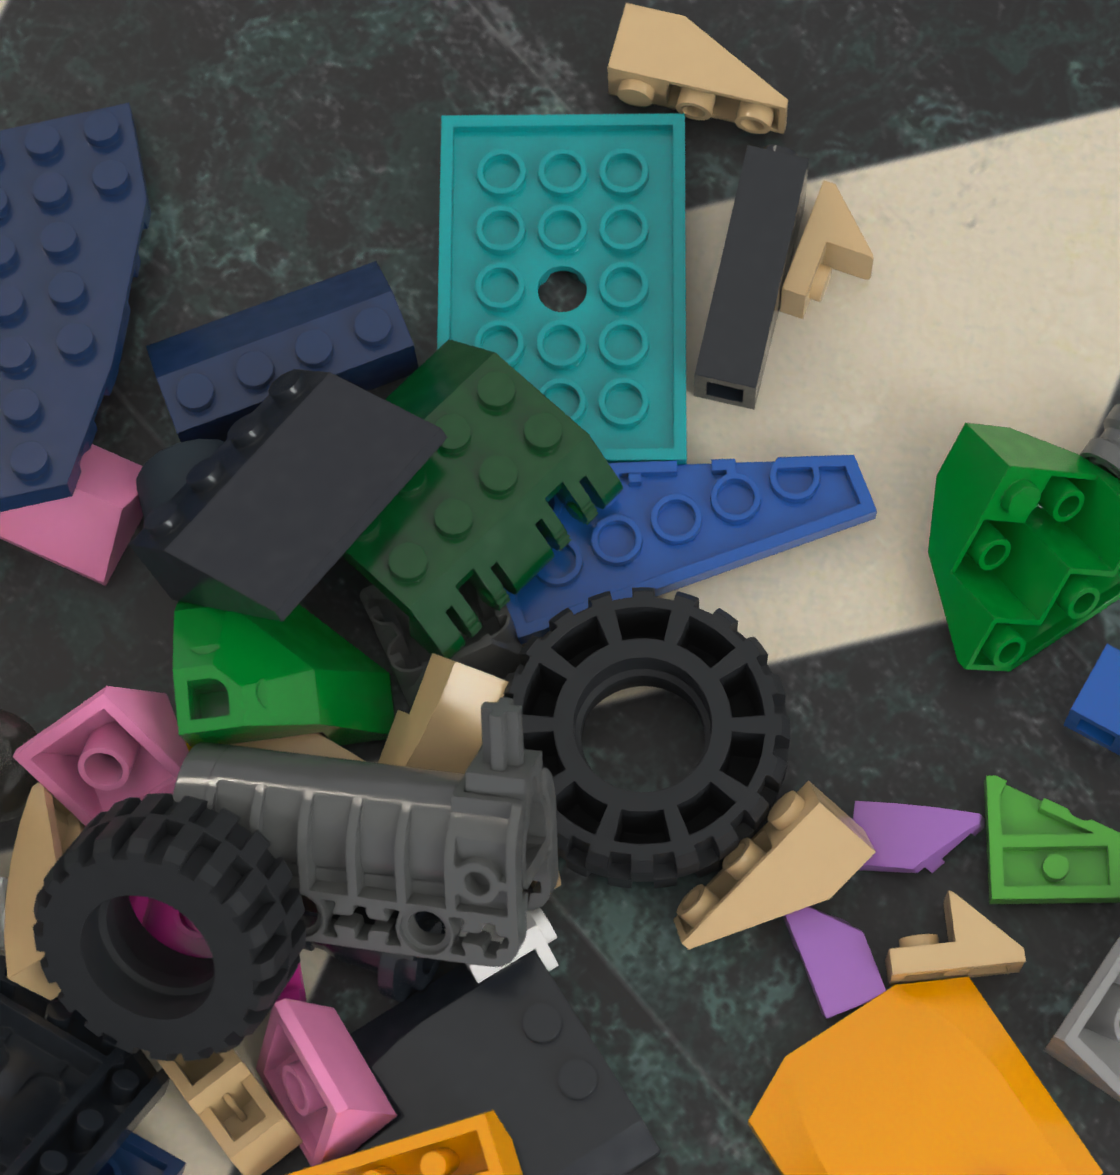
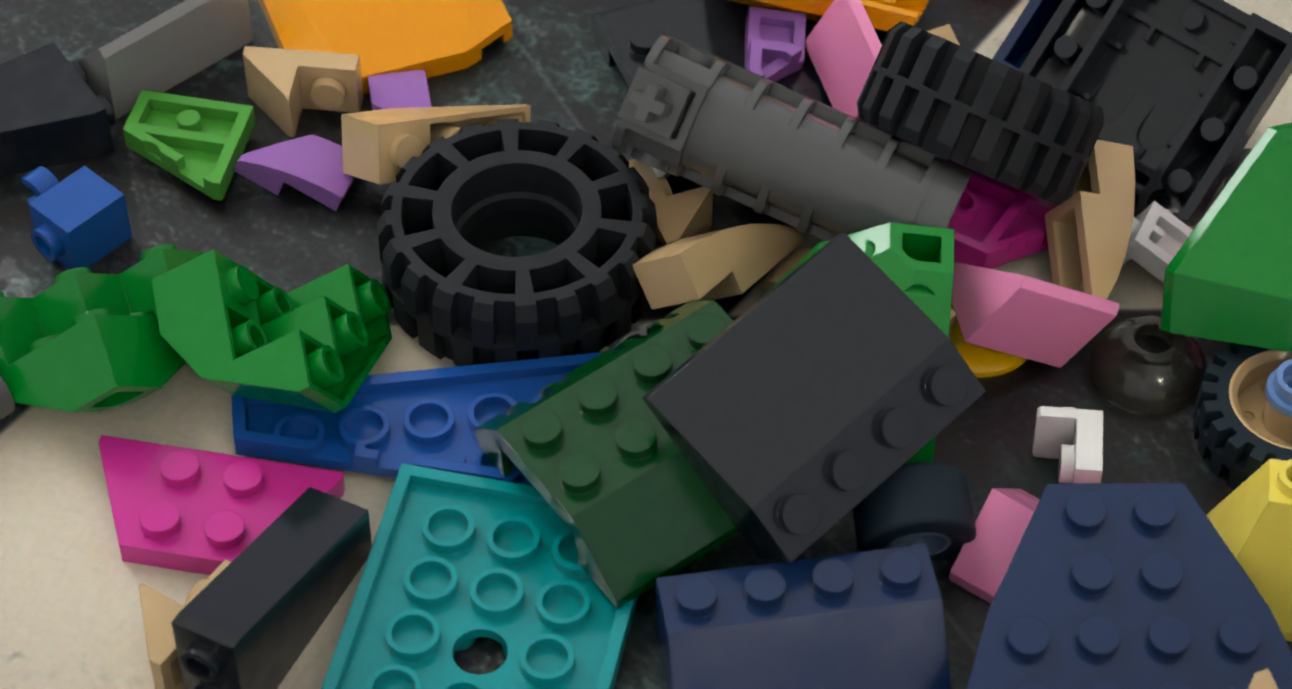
camera: 175 degrees left, 25 degrees down
(46, 604) = (1074, 439): none -> white bracket
(428, 1080) = (774, 42): none -> medium lavender slope
(842, 550) = (273, 344): none -> green brick
(856, 398) = (198, 505): none -> dark pink wing

